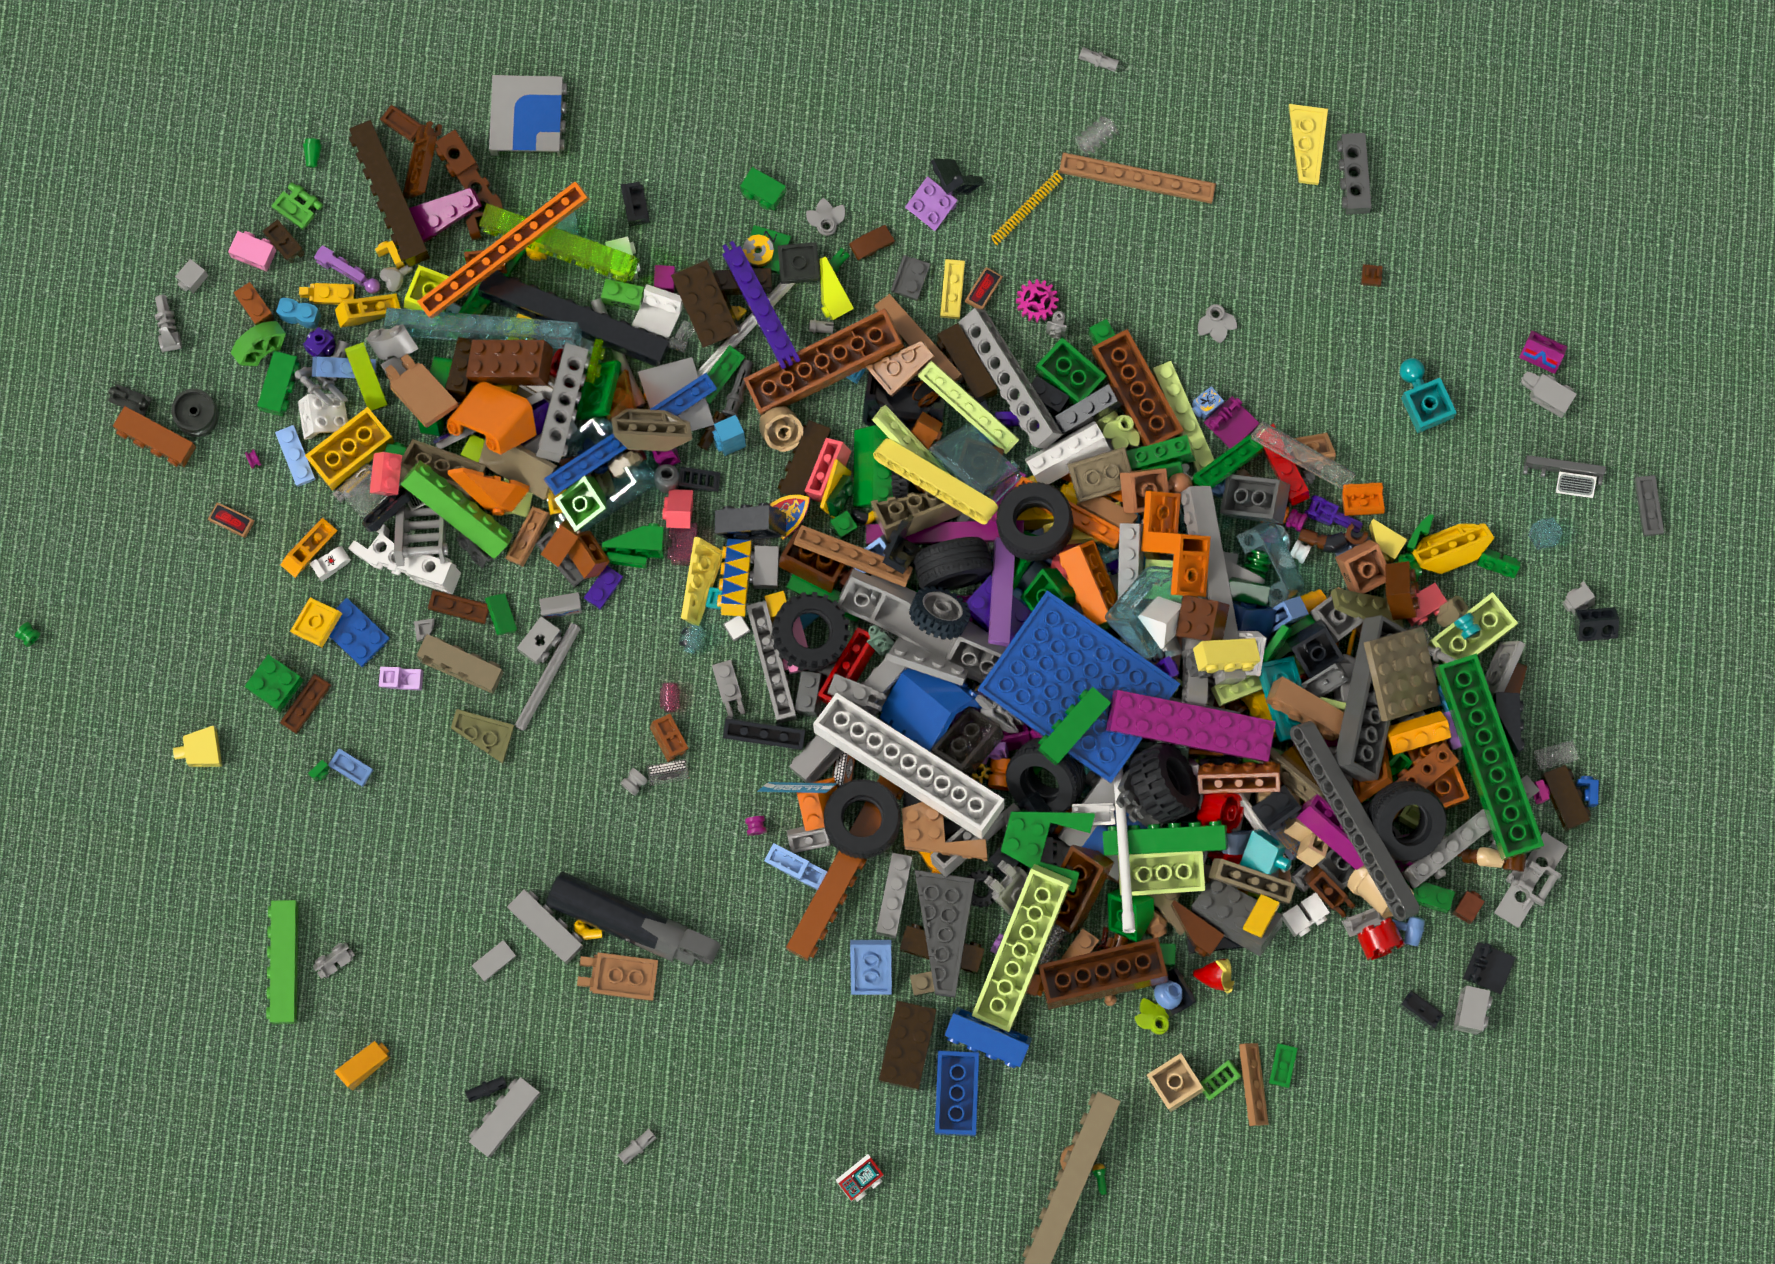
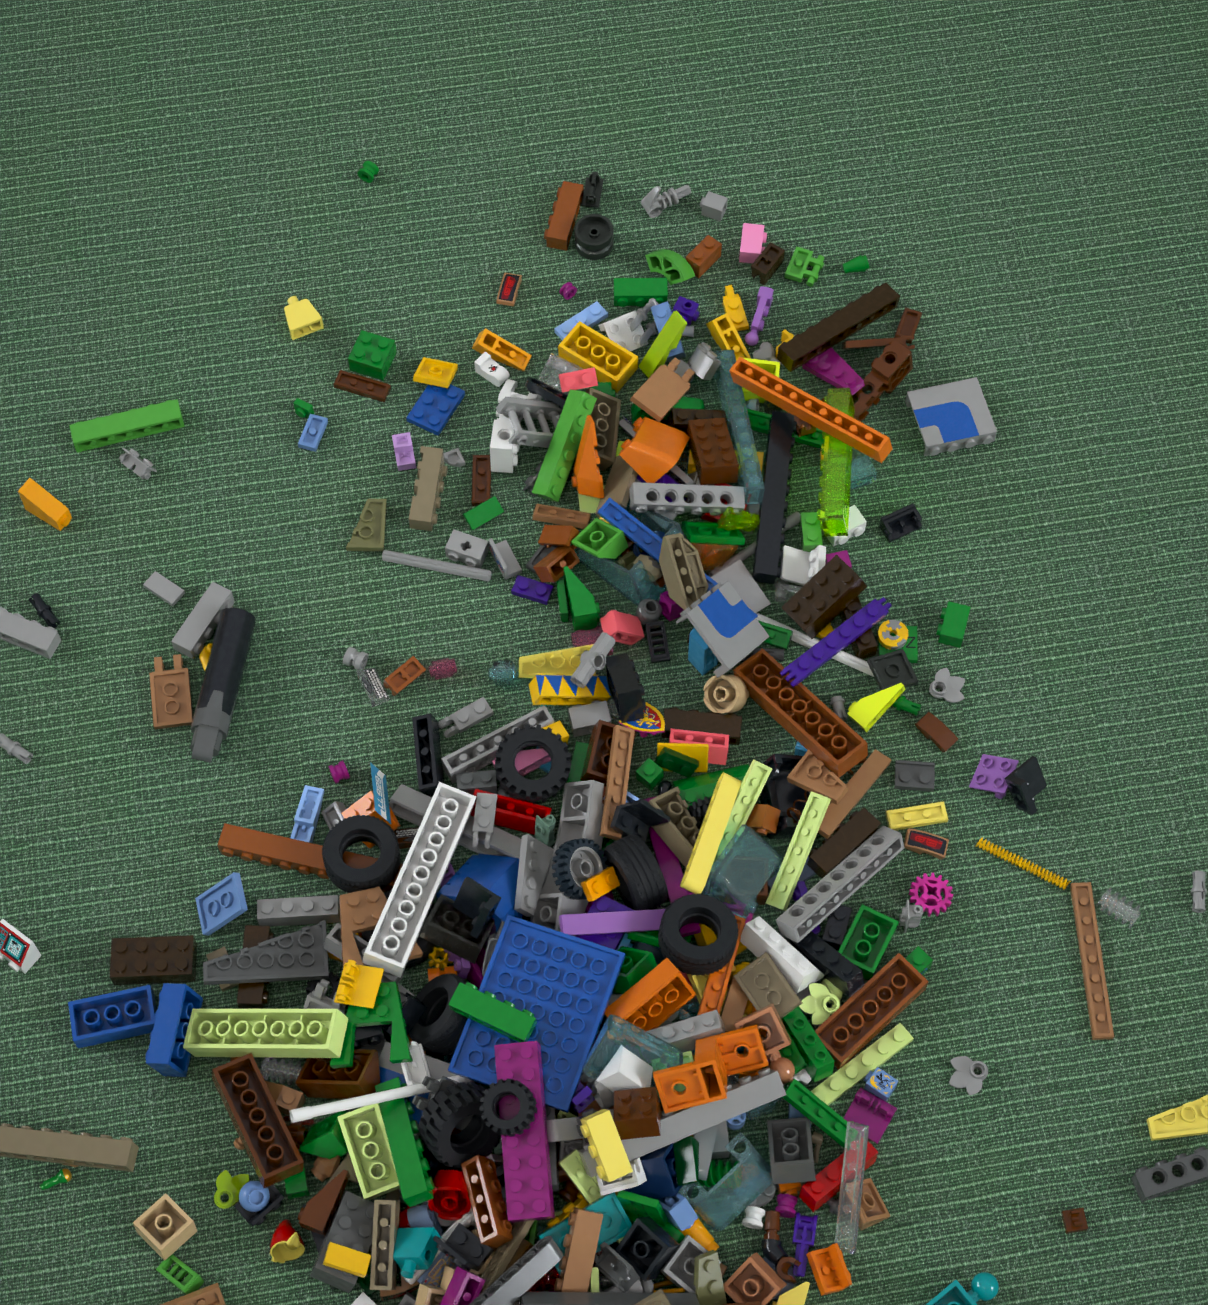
camera: 75 degrees right, 15 degrees down
(303, 313) = (708, 290): dark azure brick -> none
(716, 544) = (593, 660): none -> light grey piece
(718, 406) = (725, 625): none -> light grey panel
(736, 628) = (524, 707): white tile -> none
(957, 714) = (477, 904): none -> black bracket
(959, 598) = (600, 884): none -> light orange plate
(1007, 846) = (358, 985): none -> yellow hinge
(1192, 724) = (492, 1098): none -> black tyre

